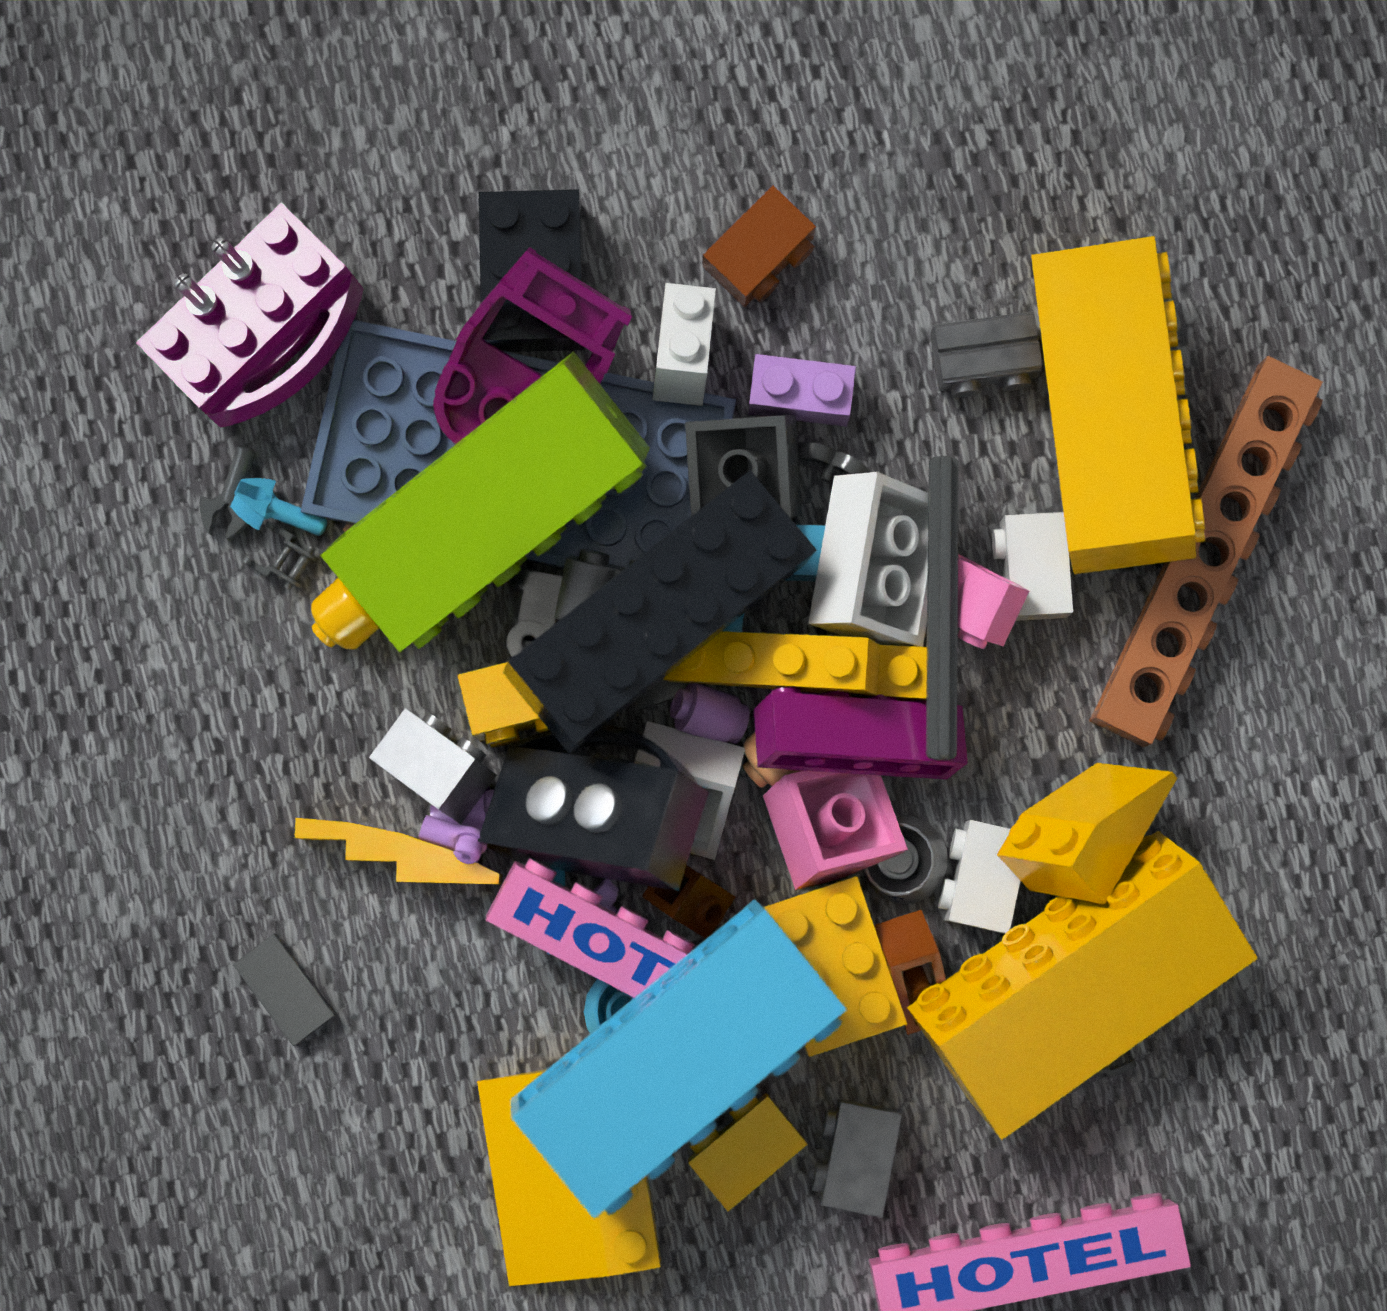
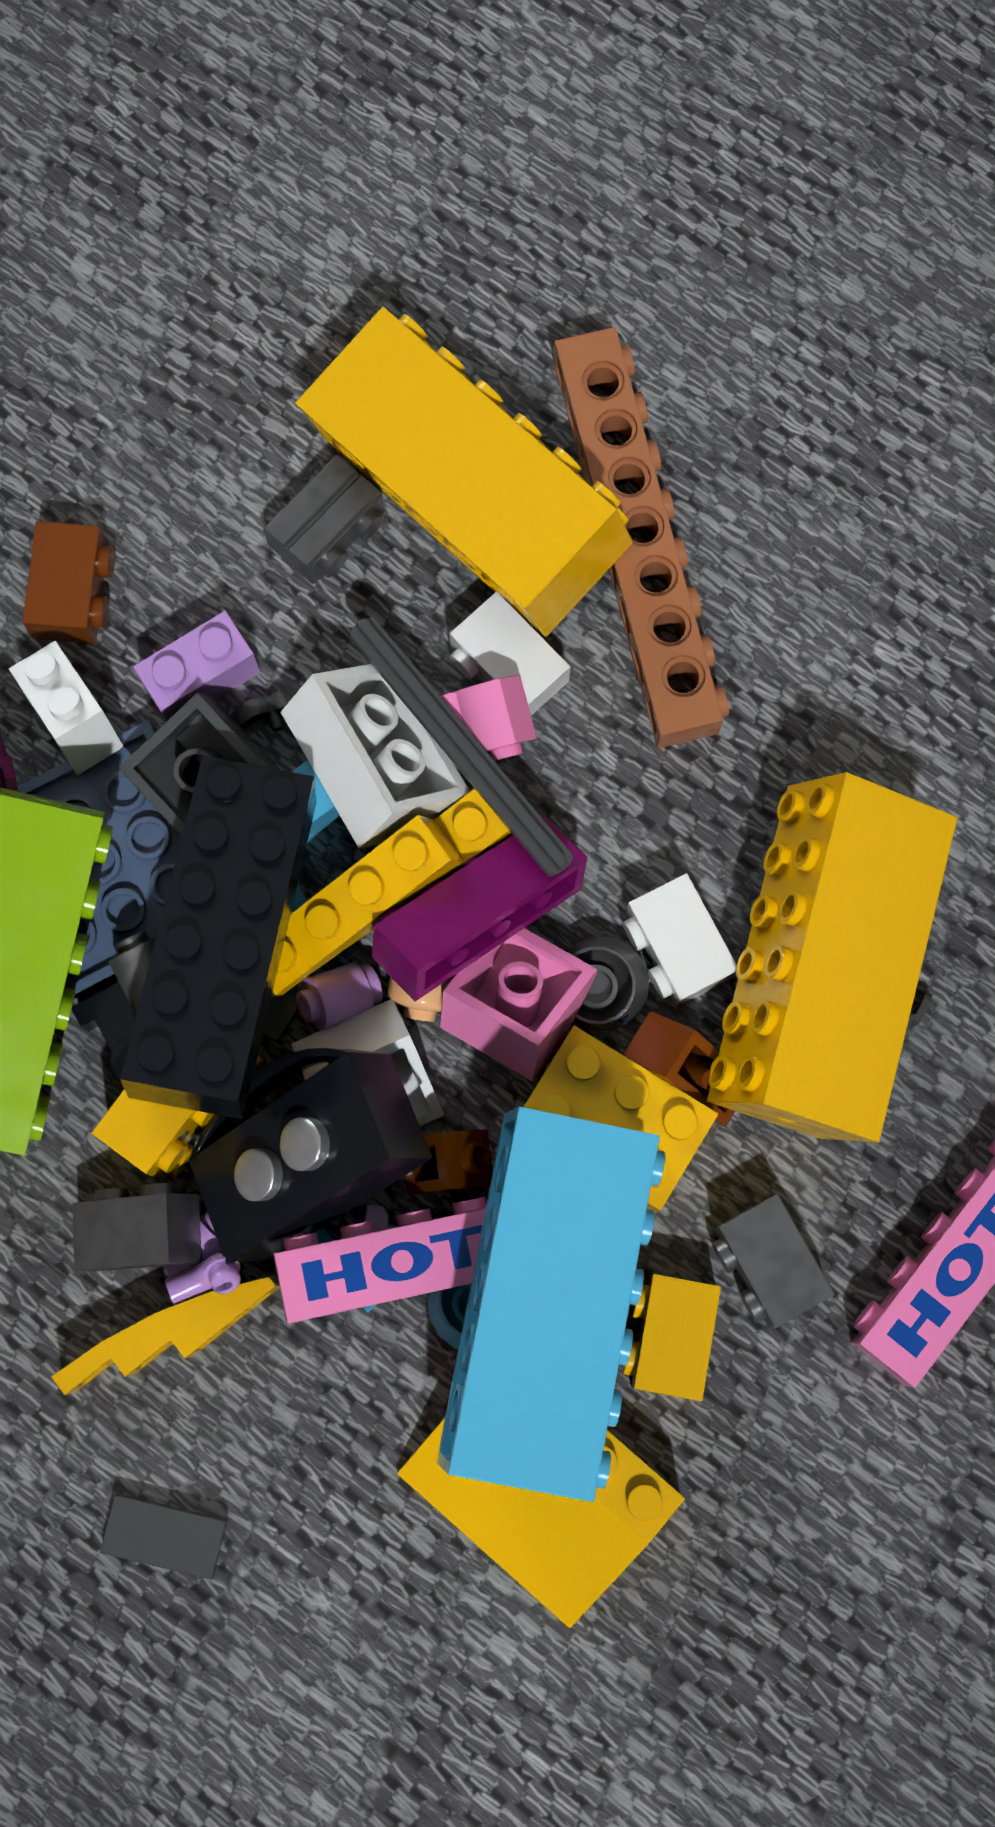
camera: 40 degrees left, 5 degrees down
(1086, 831) = (731, 833): yellow slope -> none

